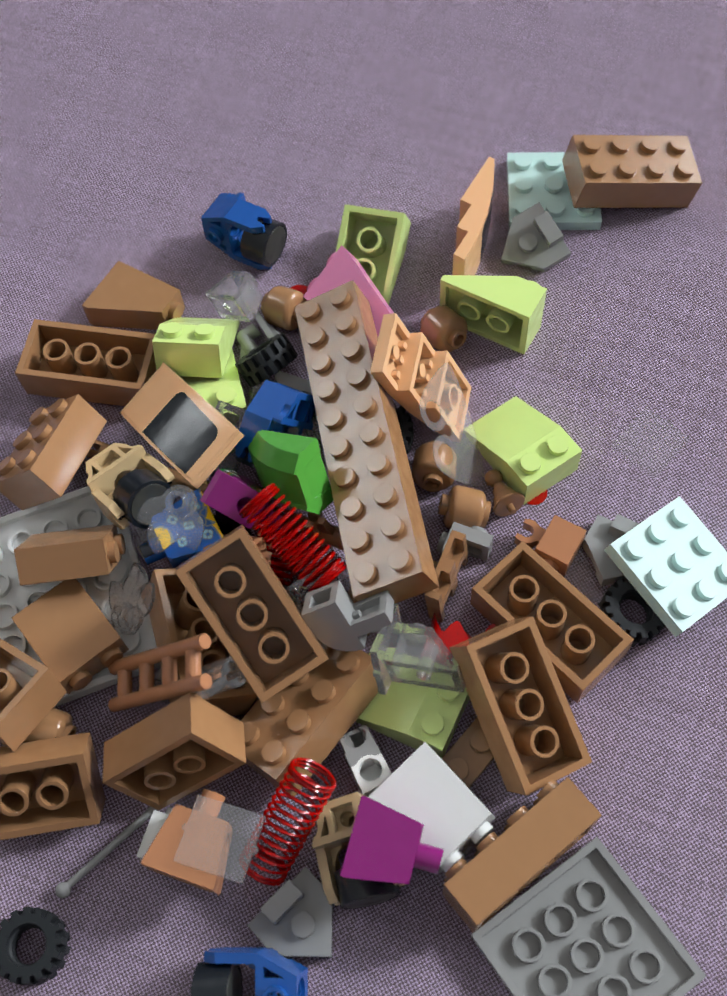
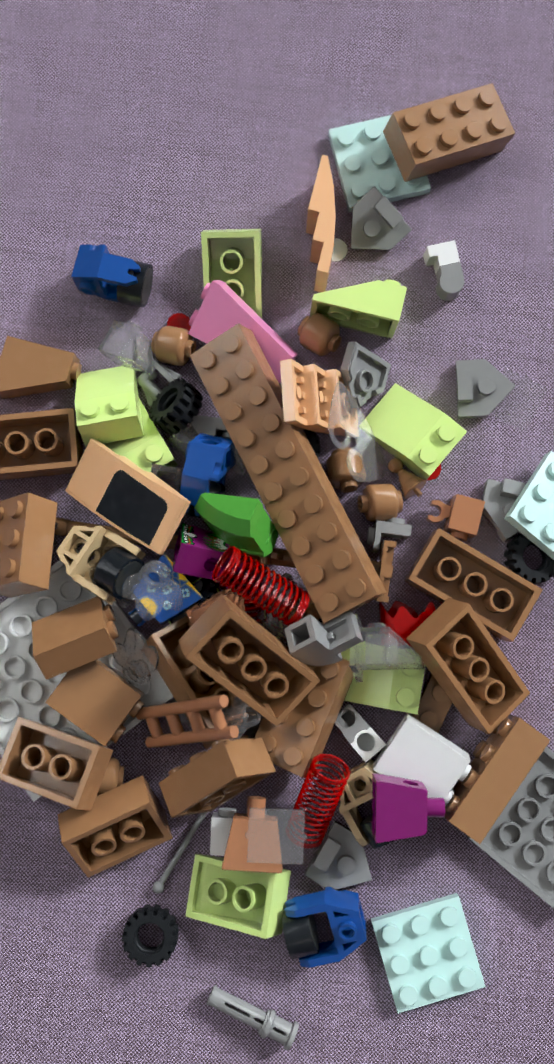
camera: 25 degrees left, 20 degrees up
(156, 923) = (237, 899): none -> yellowish green slope
(481, 371) = (363, 373): none -> light grey plate
(488, 261) = (339, 250): none -> white sticker
(601, 292) = (447, 269): none -> leg
(610, 420) = (479, 388): none -> light grey plate

